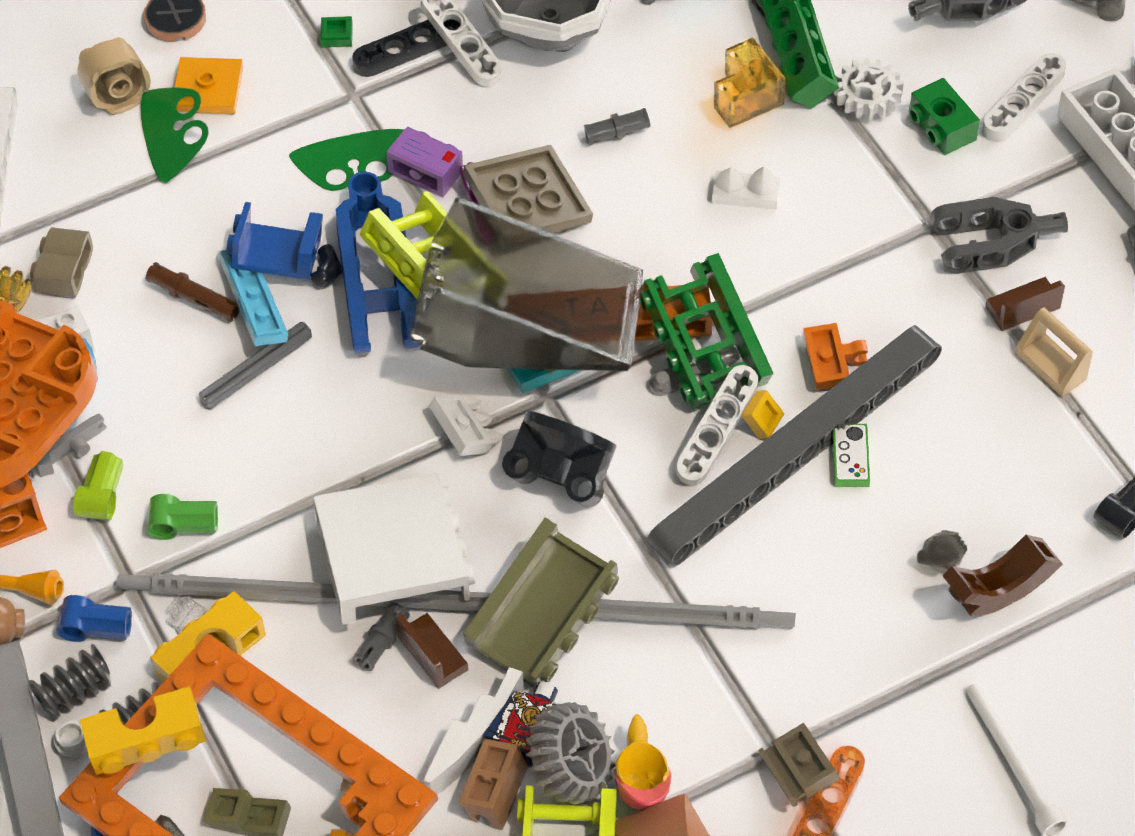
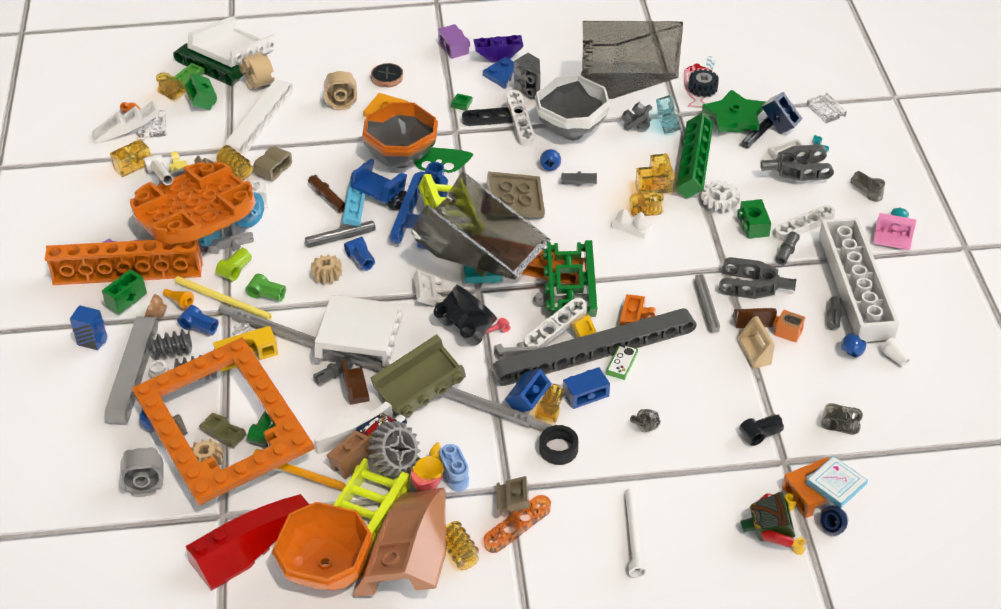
camera: 20 degrees right, 10 degrees down
(111, 559) = (223, 298): none -> light yellow piece
(165, 144) = (351, 126): green piece -> none
(173, 729) = (199, 370): yellow arch -> none
(270, 444) = (326, 269): none -> tan gear
(274, 136) = (399, 133): none -> rock
(305, 388) = (359, 252): none -> blue piece
(321, 791) = (256, 431): none -> green piece
(425, 161) = (472, 164): medium lavender brick -> none
(552, 105) = (550, 159): none -> blue piece
(625, 451) = (502, 324): none -> coral hand
(675, 495) = (502, 352): none -> light grey piece
(682, 745) = (455, 467): none -> light blue brick
(732, 565) = (528, 390): none -> blue brick
(752, 145) = (645, 203): none -> clear yellow piece
(776, 580) = (549, 407): none -> clear yellow piece
(819, 525) = (586, 387): none -> blue brick
(824, 621) = (558, 432): none -> black tyre
(937, 300) = (707, 303): none -> light grey axle
(1006, 579) = (670, 444): reddish brown arch -> none
(1019, 155) = (787, 248): none -> dark grey pin
(1088, 302) = (789, 325): none -> orange brick

